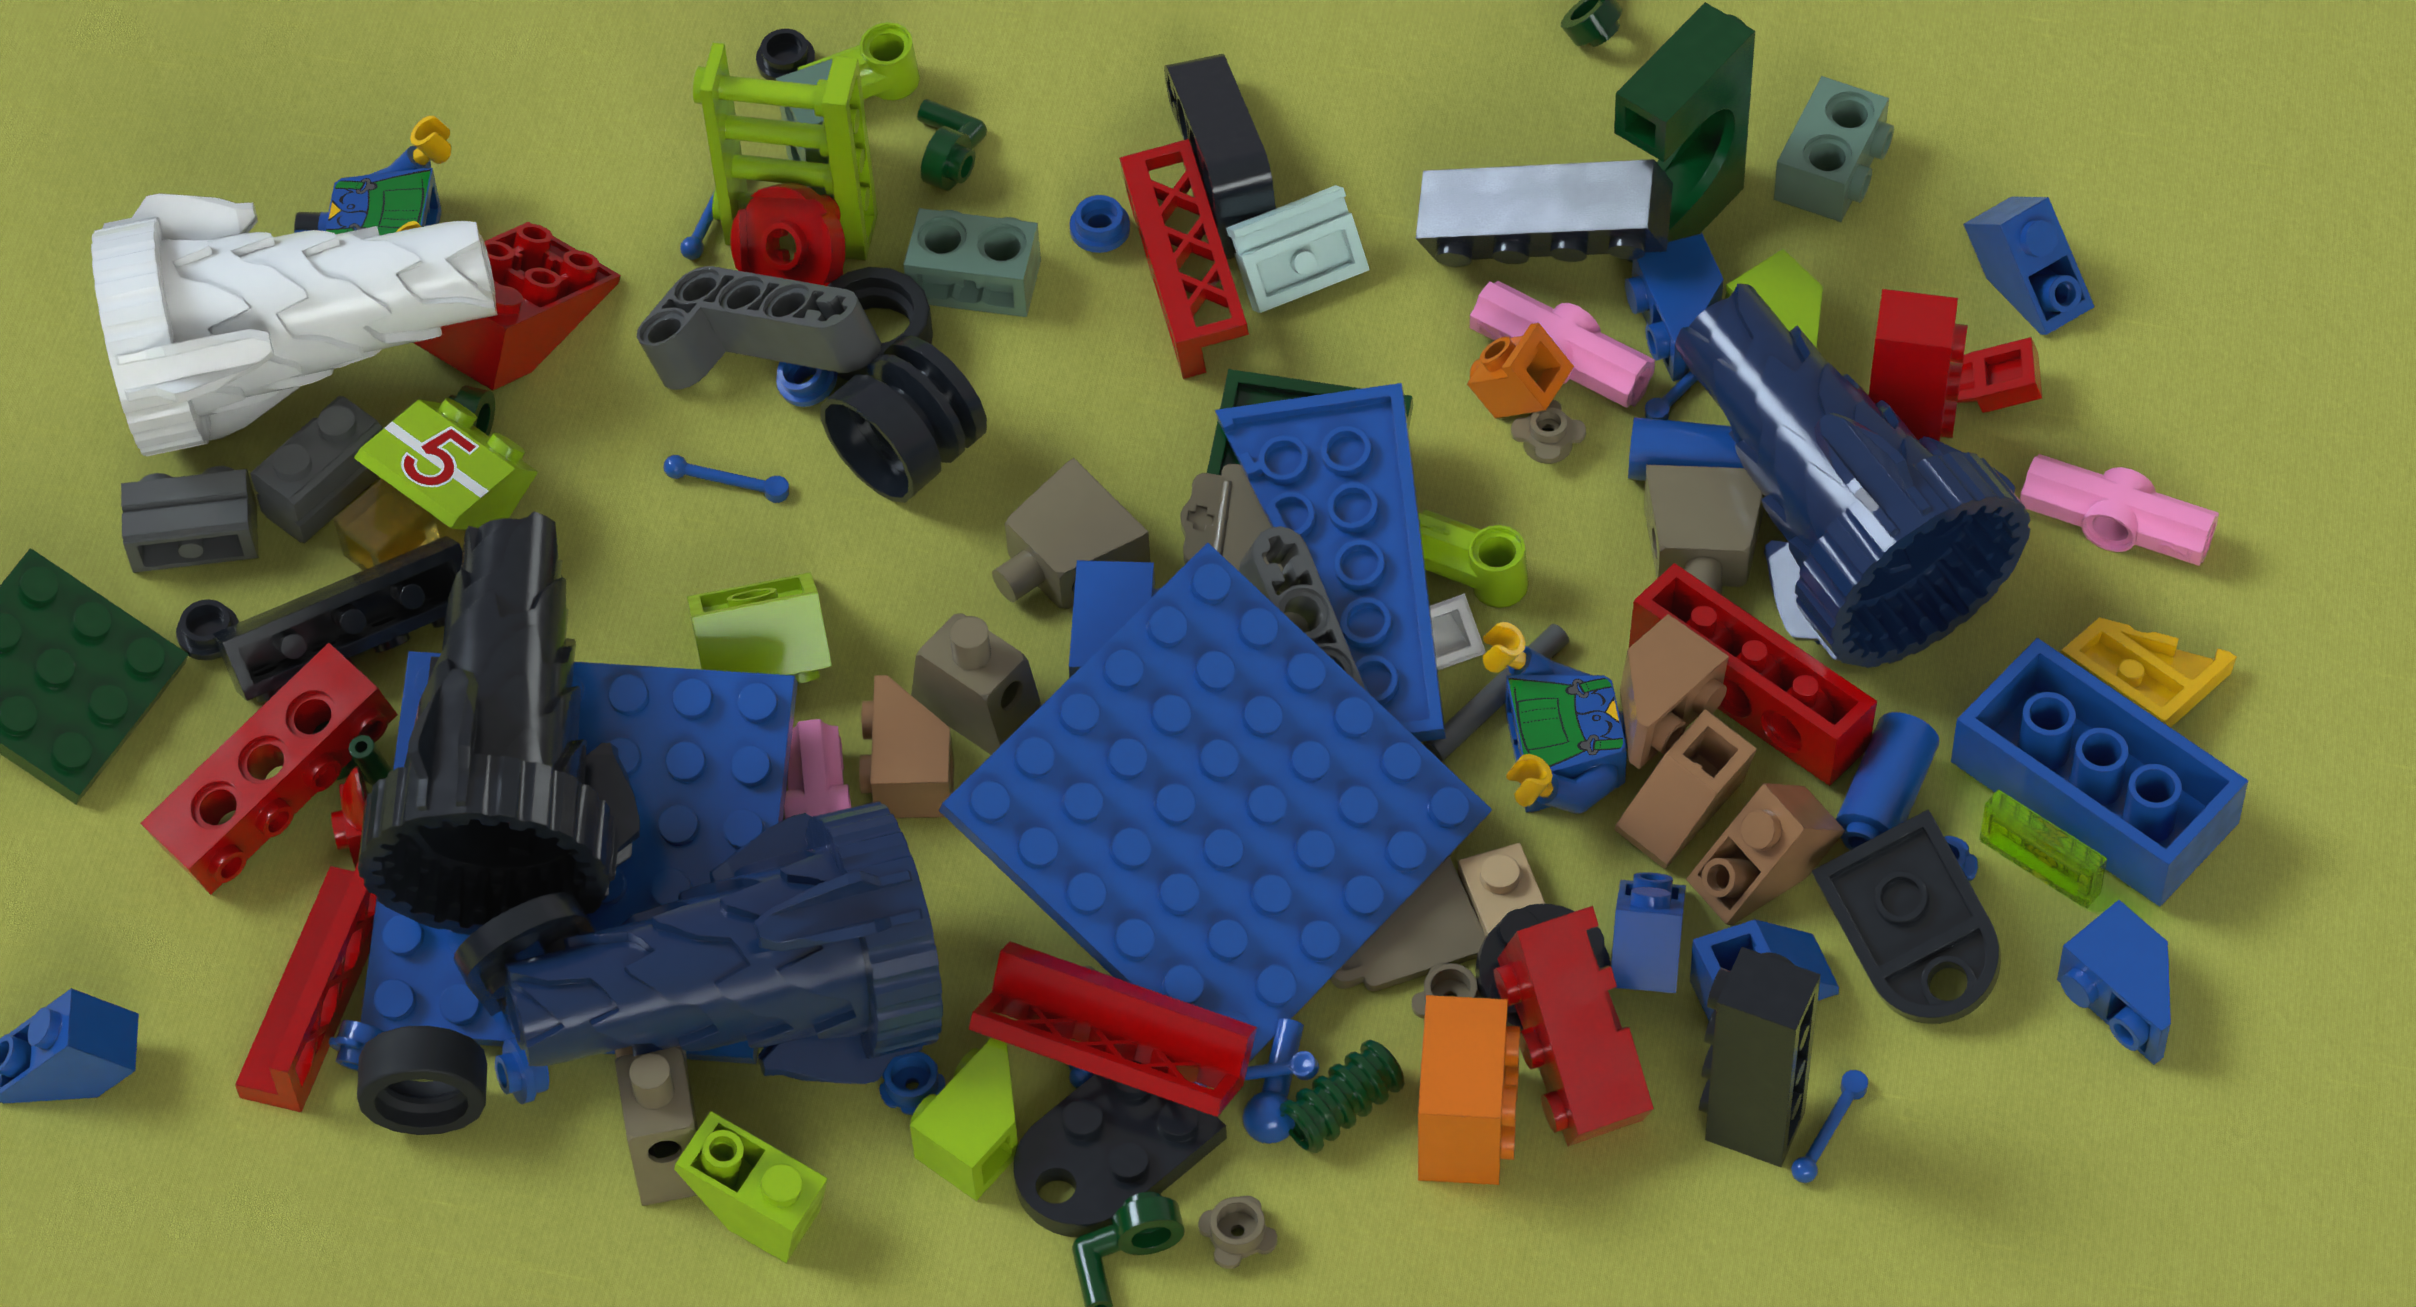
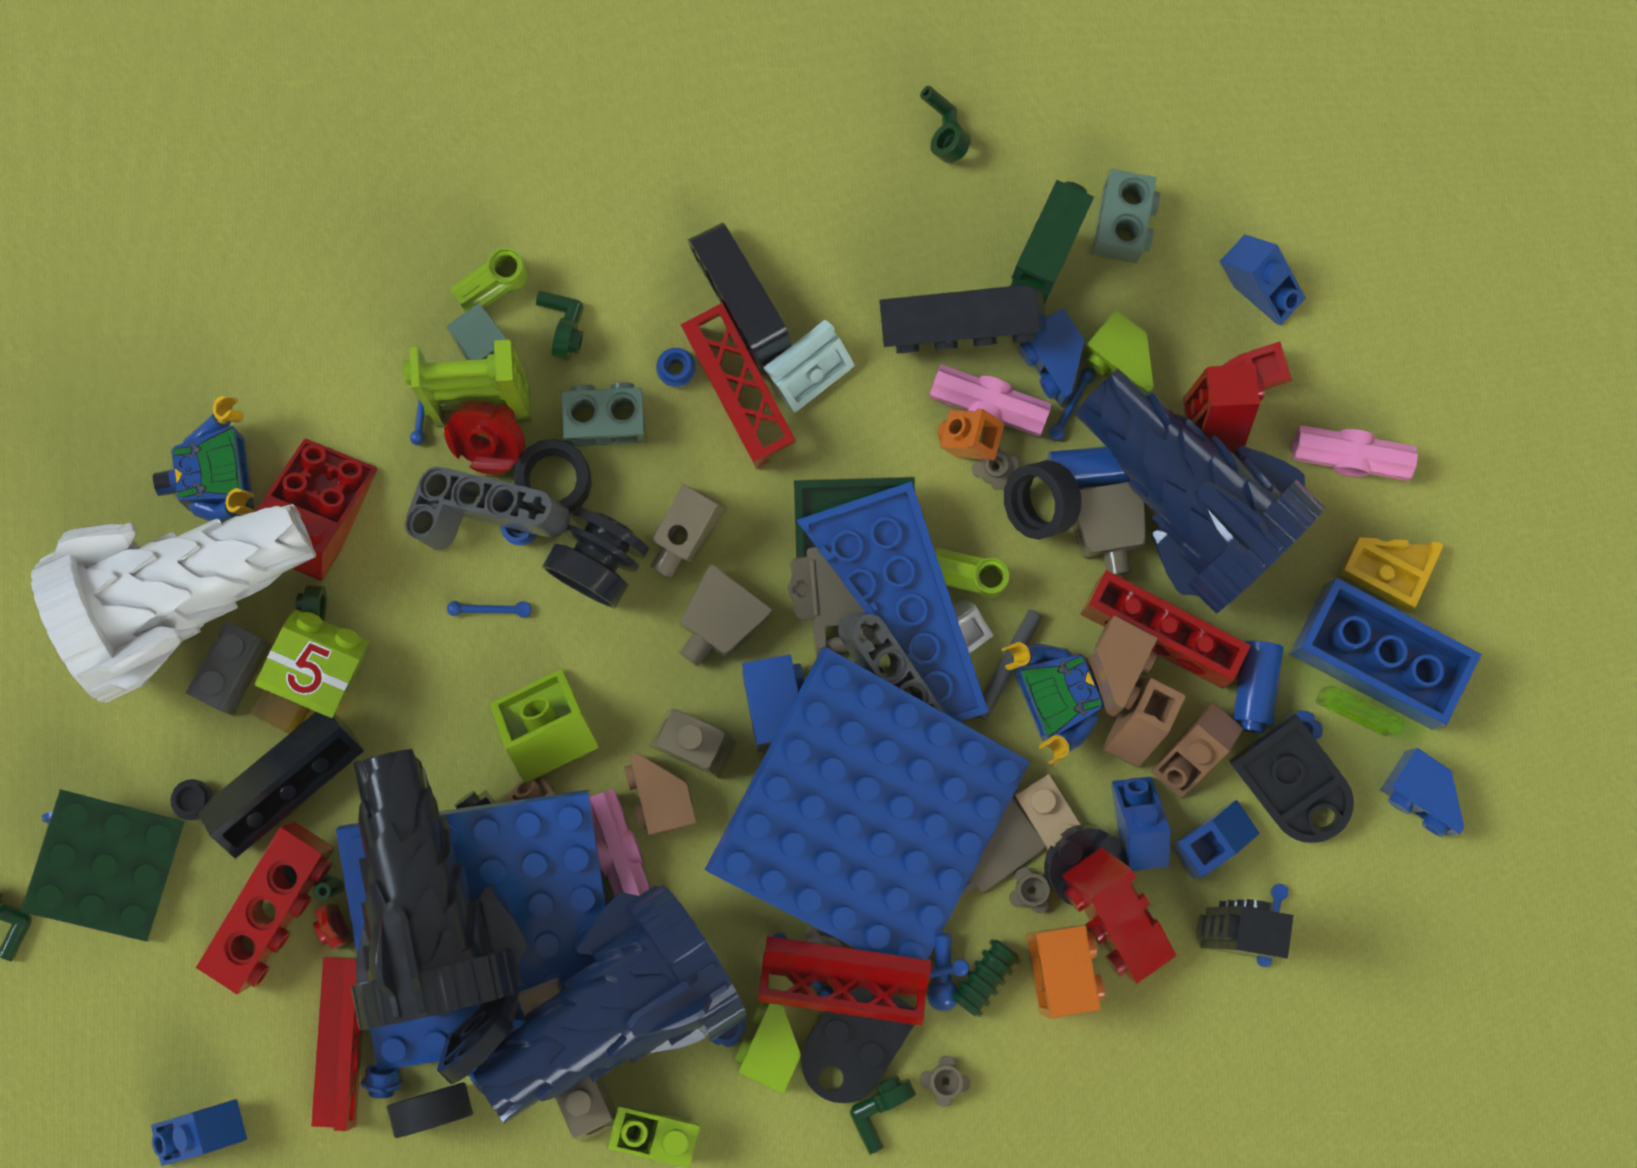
camera: 25 degrees left, 25 degrees up
(189, 519) = (153, 722): dark grey brick -> none
(783, 53) = (437, 276): black plate -> none
(1052, 408) = (695, 514): none -> dark tan torso
(1632, 475) = (1065, 494): none -> black tyre

